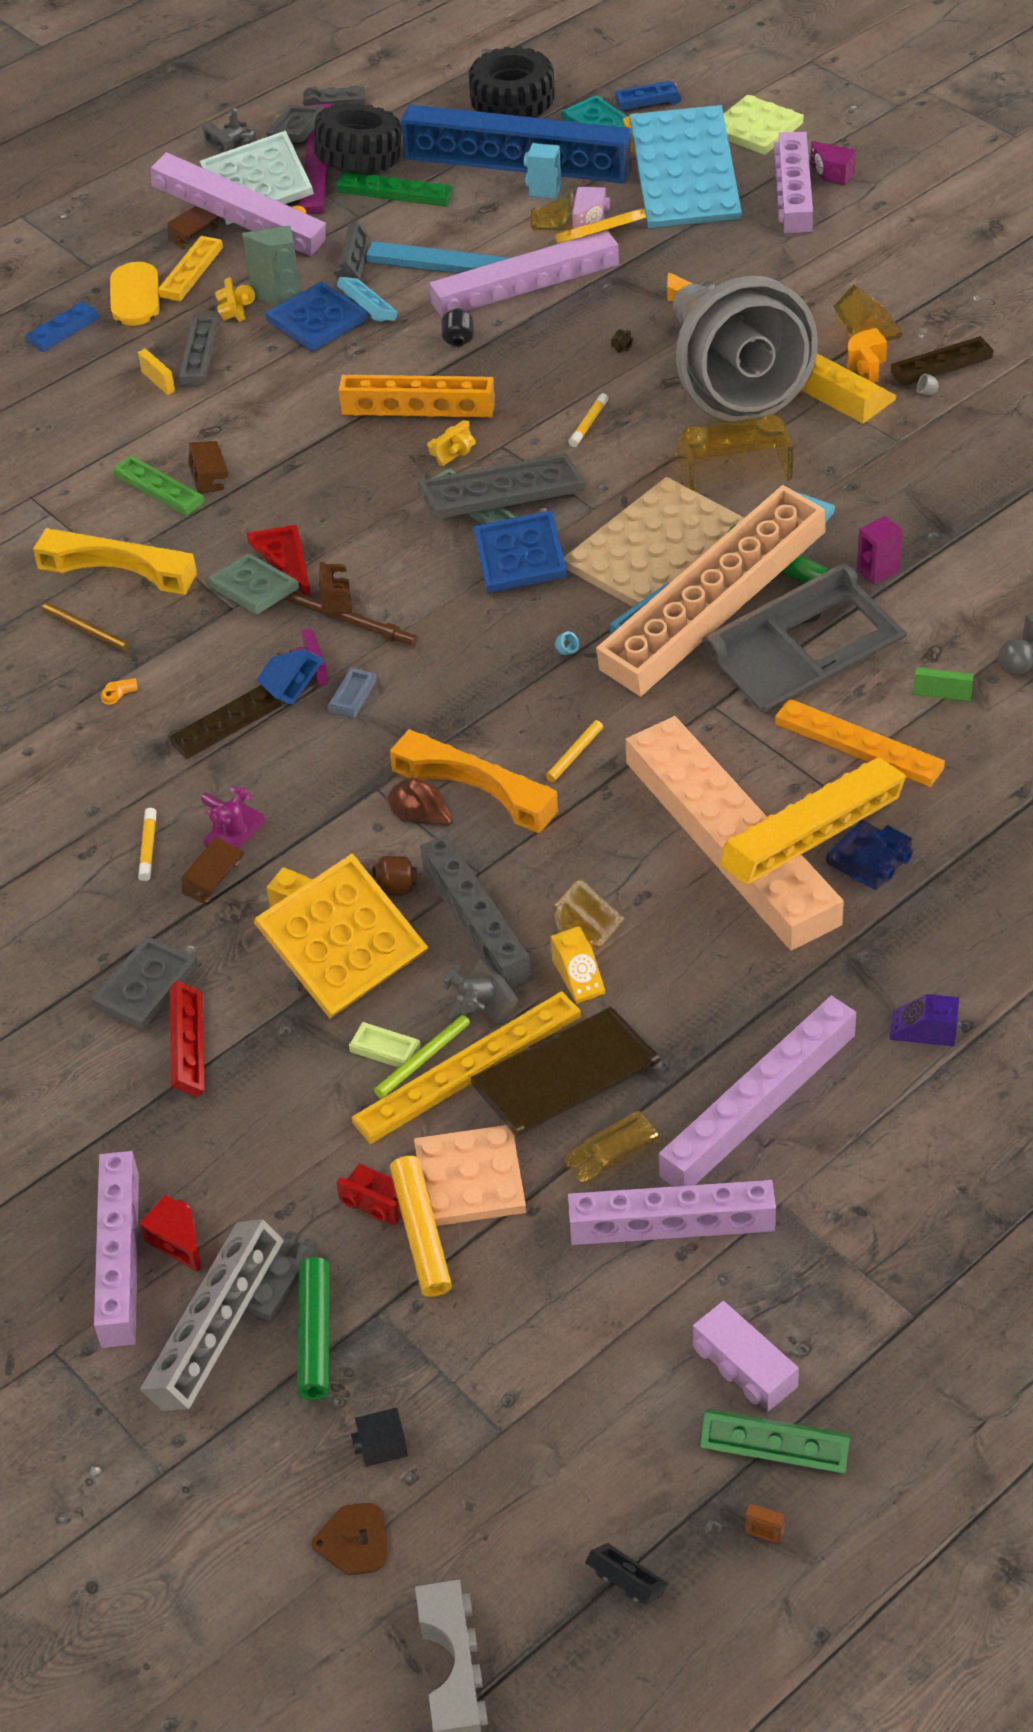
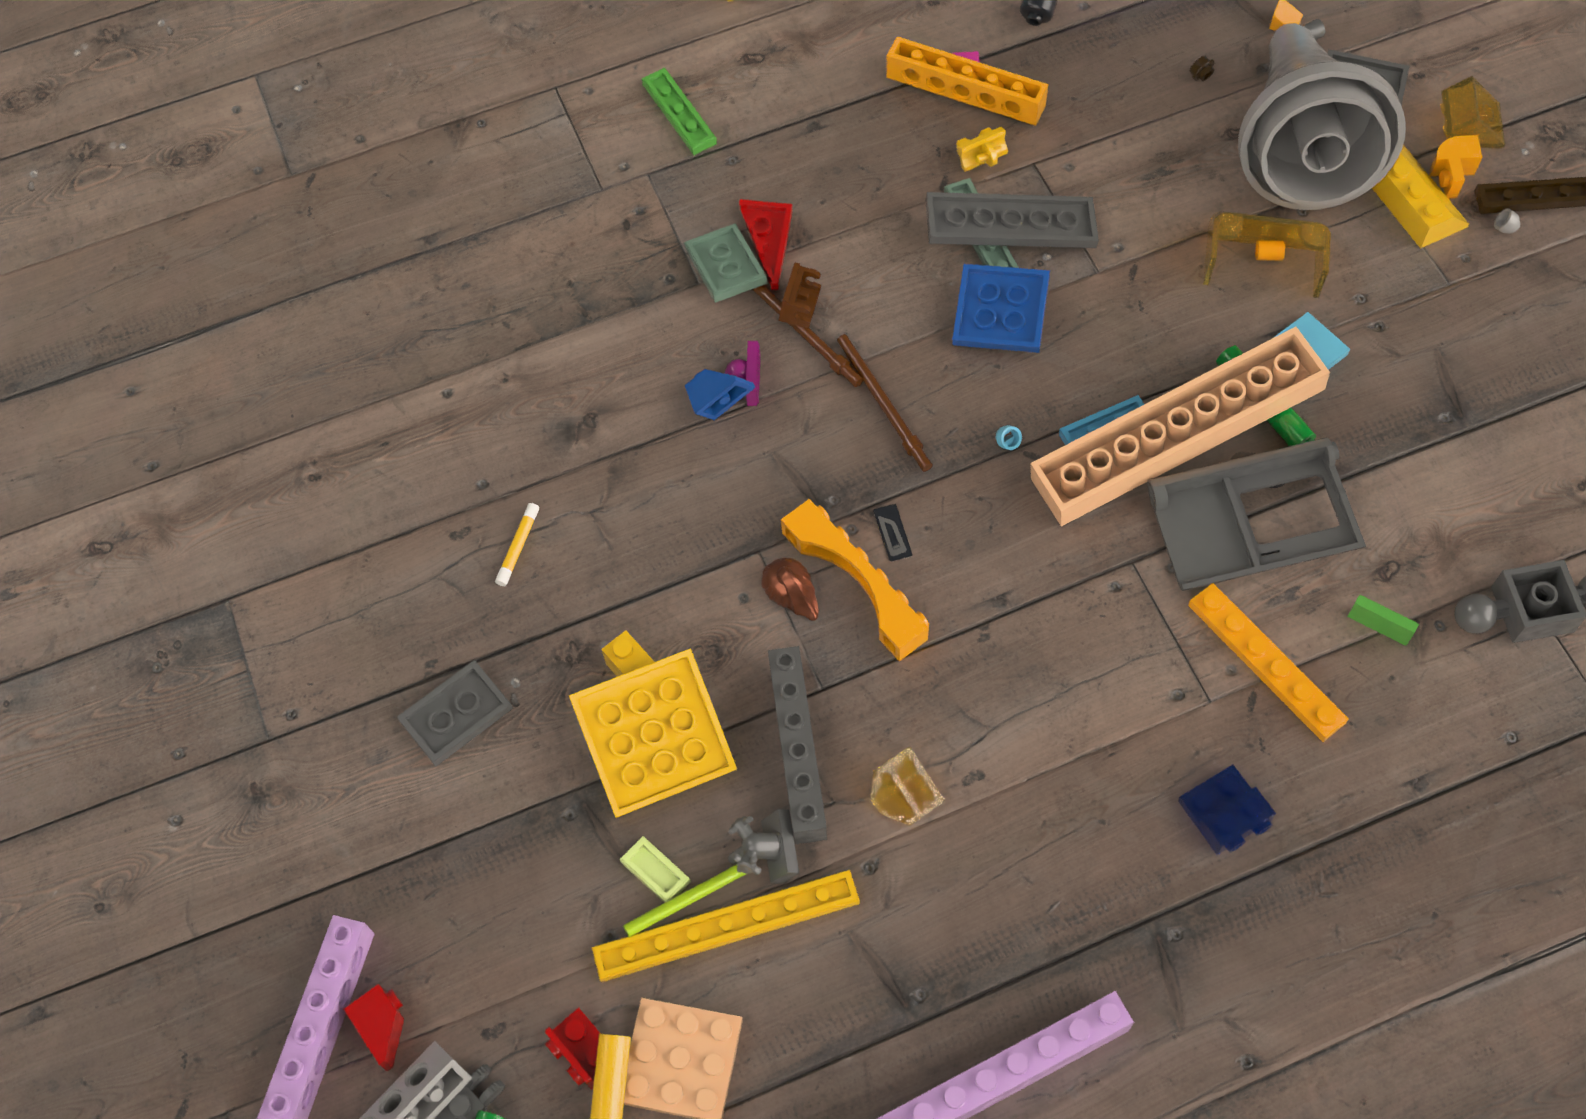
camera: 20 degrees right, 15 degrees up
(68, 551) = (564, 168): yellow arch -> none
(86, 627) = (551, 262): pearl gold bar -> none
(116, 689) = (552, 348): light orange arm -> none
(186, 1039) = (469, 796): red plate -> none
(206, 465) = (731, 104): reddish brown hinge -> none
(210, 869) = (562, 600): reddish brown hinge -> none
(224, 722) = (639, 421): dark brown plate -> none
(232, 819) = (601, 551): magenta piece -> none
(352, 693) = (775, 426): sand blue tile -> none
(394, 874) = (734, 669): reddish brown head -> none
(481, 671) = (910, 442): none -> reddish brown bar
(492, 743) = (892, 532): none -> black sticker
(564, 1070) = (816, 971): dark brown door -> none
(574, 751) = (969, 572): yellow bar -> none
(577, 964) = (875, 846): yellow slope -> none
(588, 420) = (1132, 158): yellow bar -> none
(612, 1145) = (833, 1080): clear yellow hinge -> none
(651, 541) = (1145, 336): tan plate -> none
(714, 808) = (1093, 739): light nougat brick -> none
(736, 454) = (1270, 250): none -> light orange hinge
(811, 820) = (1174, 764): yellow brick -> none
(879, 550) = (1375, 428): magenta brick -> none
(926, 1020) = (1207, 1048): dark purple slope -> none

